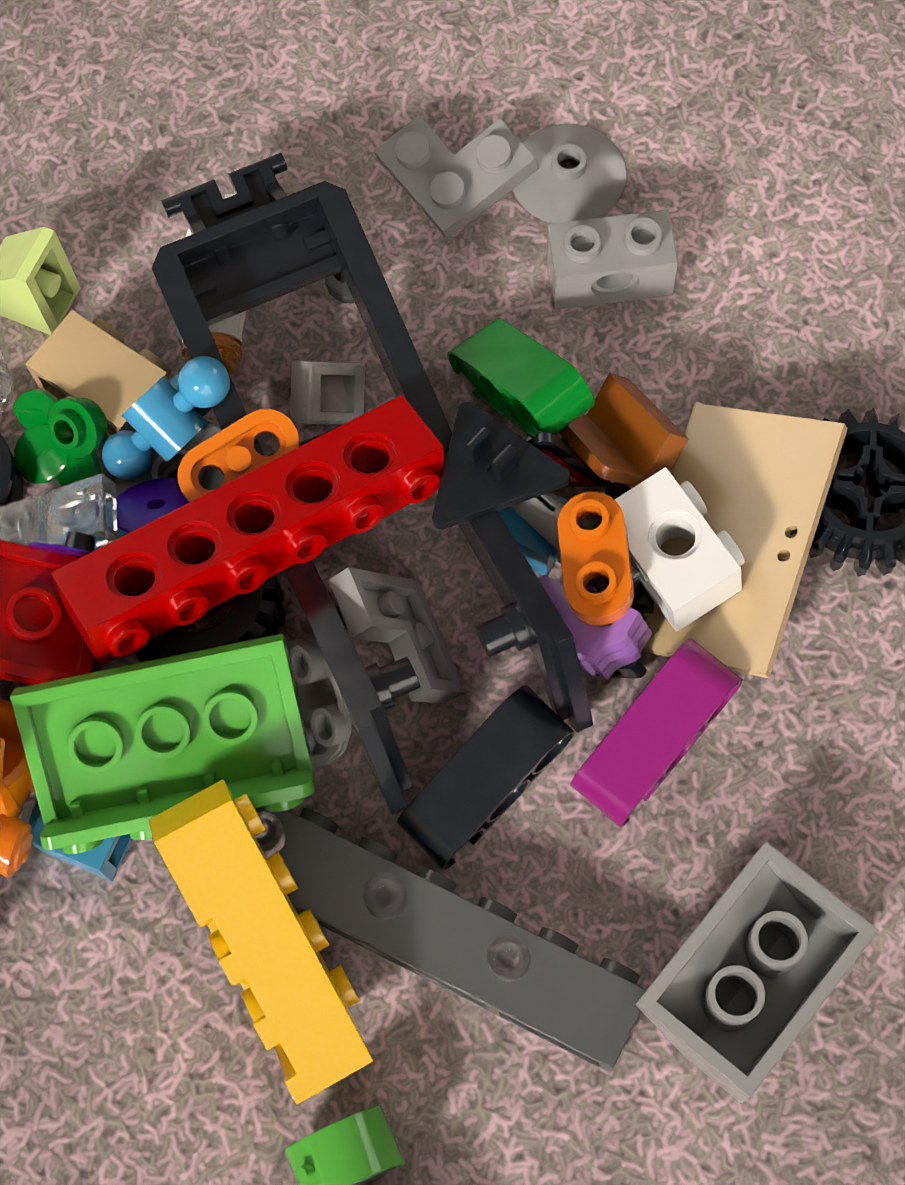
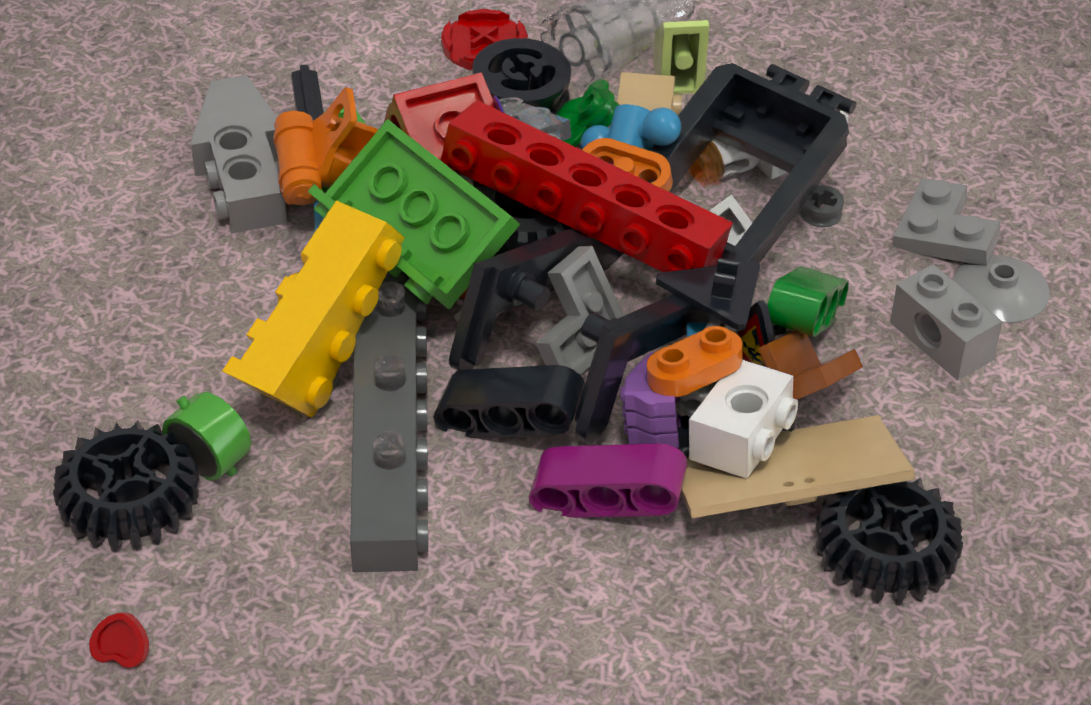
camera: 55 degrees right, 25 degrees down
(755, 972) = (468, 599): light grey slope -> none

